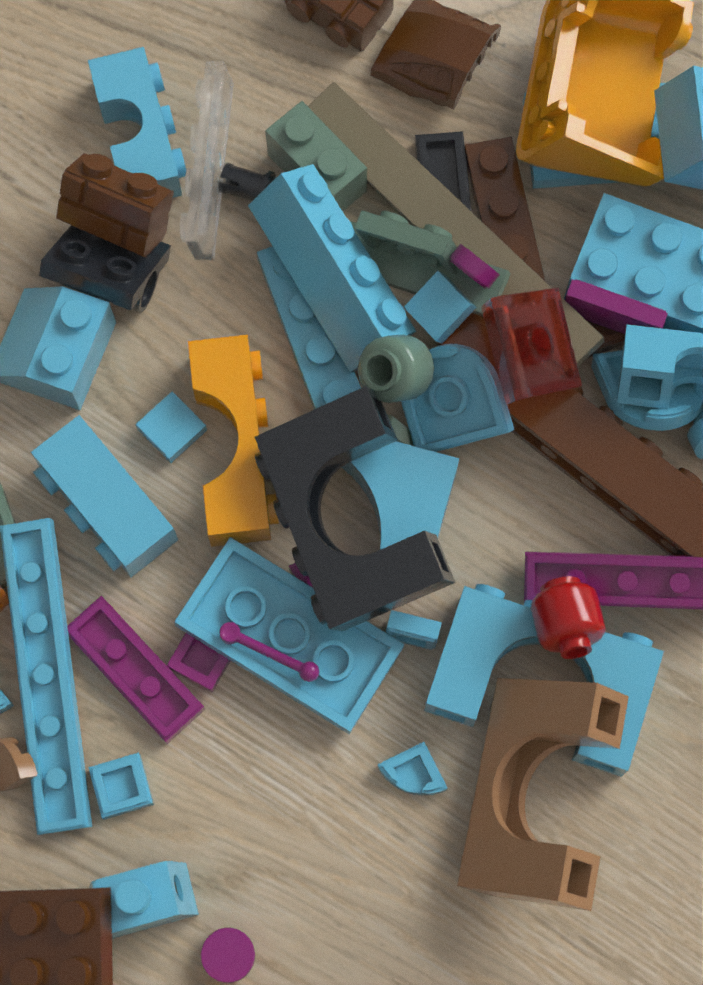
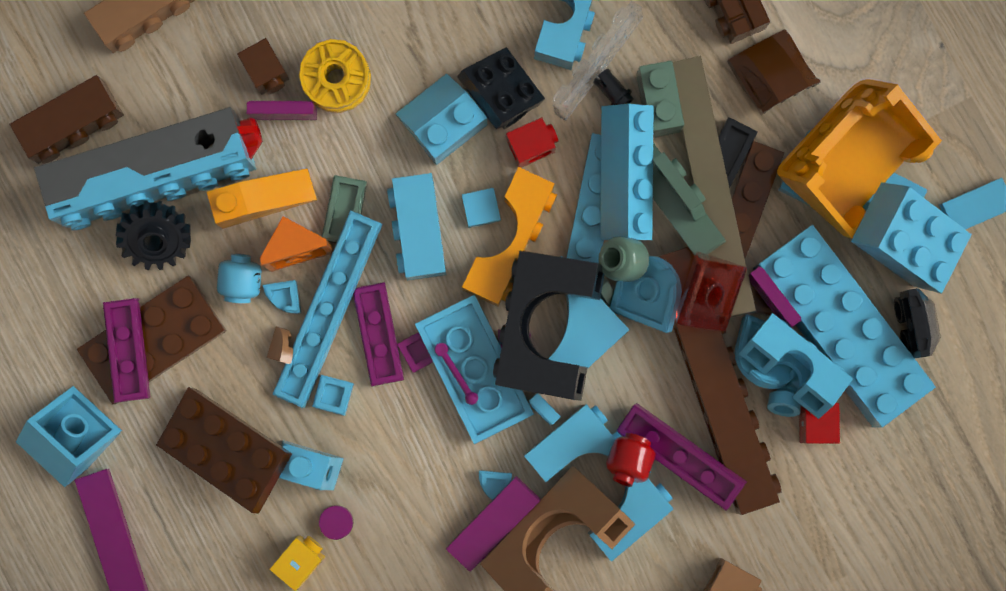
camera: 30 degrees right, 10 degrees up
(114, 203) = (524, 59): reddish brown brick -> none
(186, 305) = (532, 142): none -> red brick
(439, 307) = (673, 236): medium azure tile -> none
(440, 823) = (493, 523): none -> magenta tile
(474, 266) = (705, 226): magenta tile -> none

